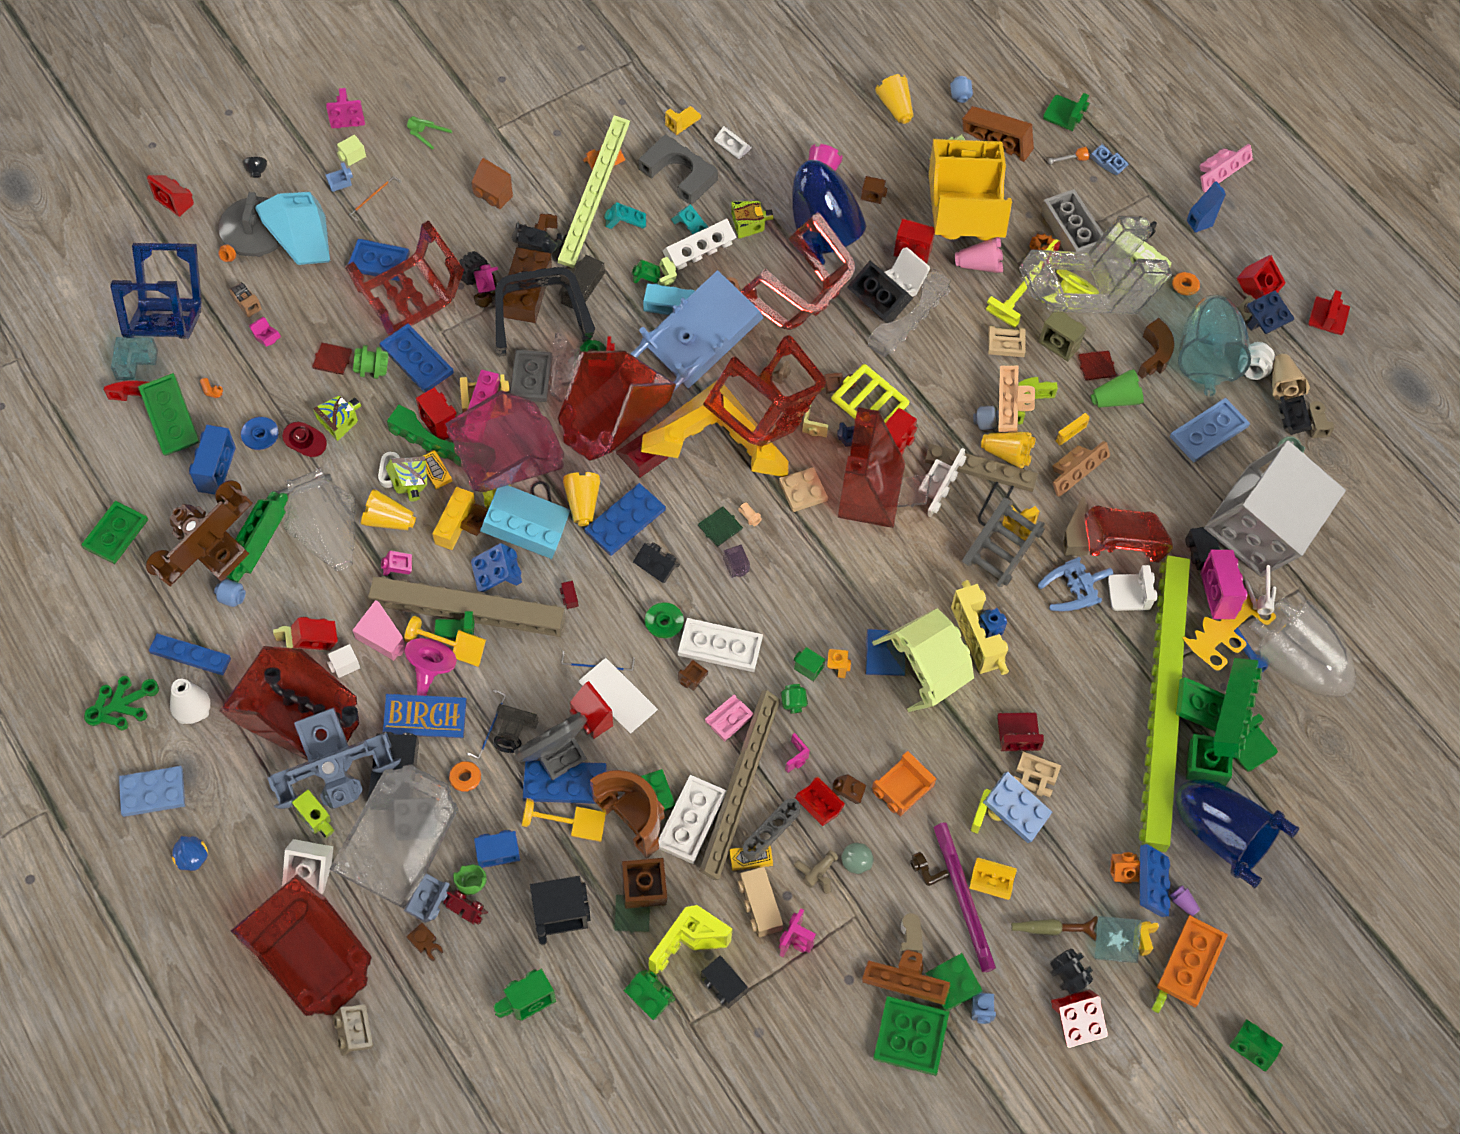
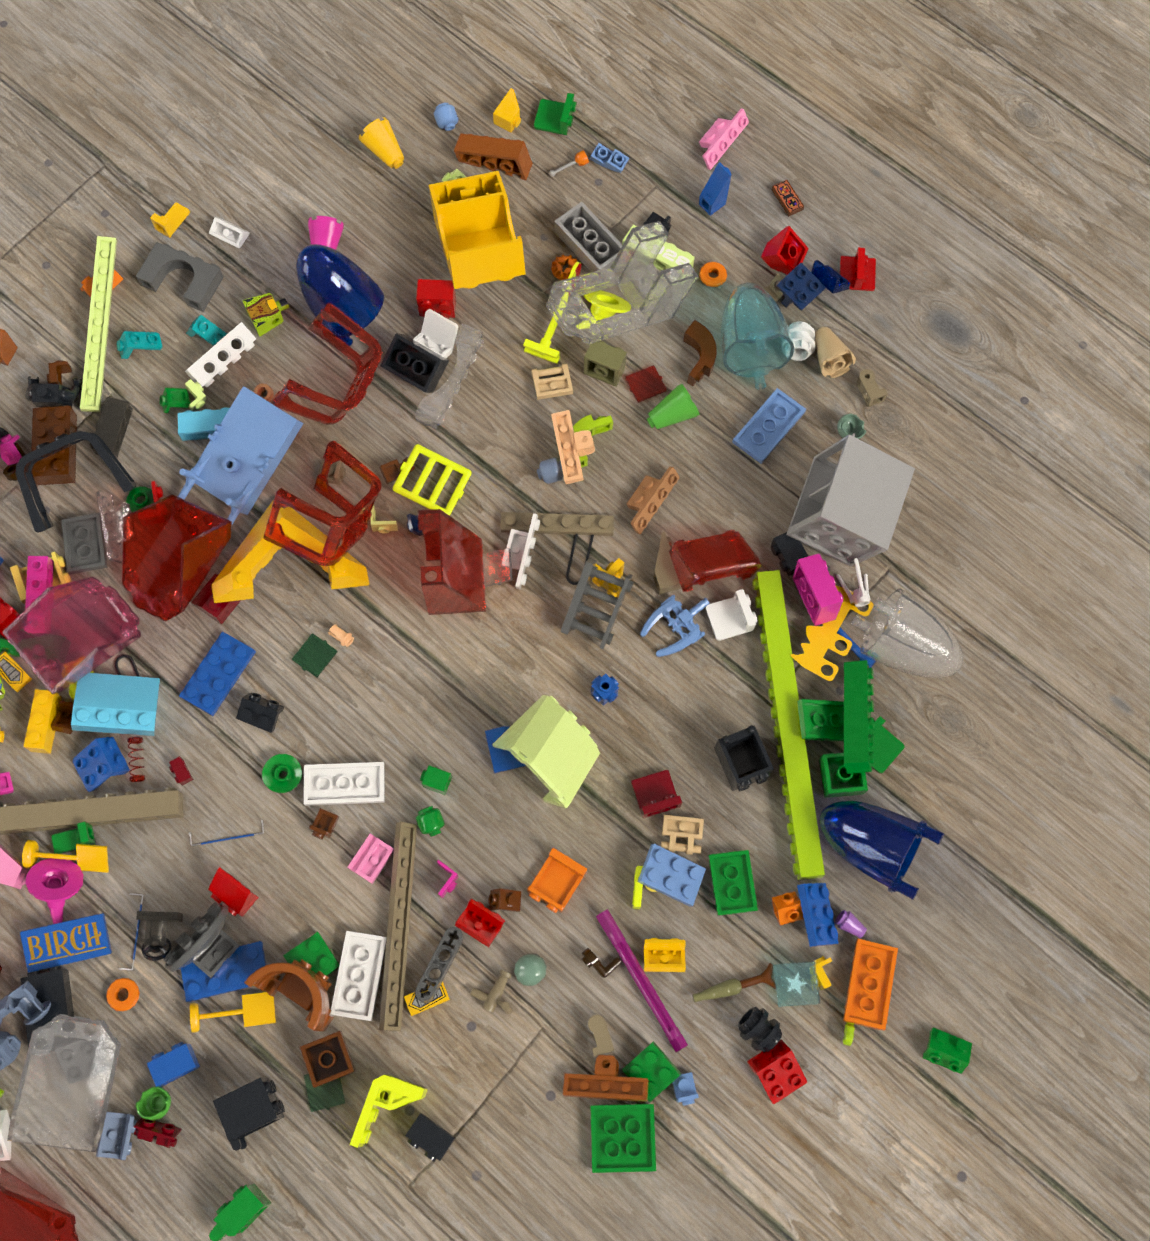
camera: 15 degrees left, 10 degrees up
(423, 940) = (123, 1178): reddish brown plate -> none
(536, 559) = (135, 778): none -> clear red piece
(582, 495) = (167, 664): yellow cone -> none
(624, 699) = (255, 864): white sticker -> none
(649, 993) = (361, 1169): green bracket -> none
(736, 561) = (339, 690): clear purple brick -> none
(760, 902) = (446, 1044): tan brick -> none
(797, 935) = (494, 1073): dark pink bracket -> none
(803, 489) = (388, 594): tan plate -> none
(839, 660) = (464, 771): light orange bracket -> none
(874, 190) = (383, 250): reddish brown brick -> none
(902, 428) = (468, 509): red brick -> none
(982, 256) = (507, 297): bright pink cone -> none
(986, 652) = (576, 678): light yellow brick -> none
(1010, 447) = (580, 496): yellow cone -> none
(1021, 99) = (508, 112): none -> yellow slope
(1072, 429) = (637, 460): yellow tile -> none
(1076, 832) = (733, 883): none -> green plate
(1114, 719) = (741, 754): none -> black container
(1275, 233) = (787, 198): none -> tile
(1295, 414) = (847, 388): black bracket -> none
(1300, 311) = (829, 277): none -> clear blue bracket

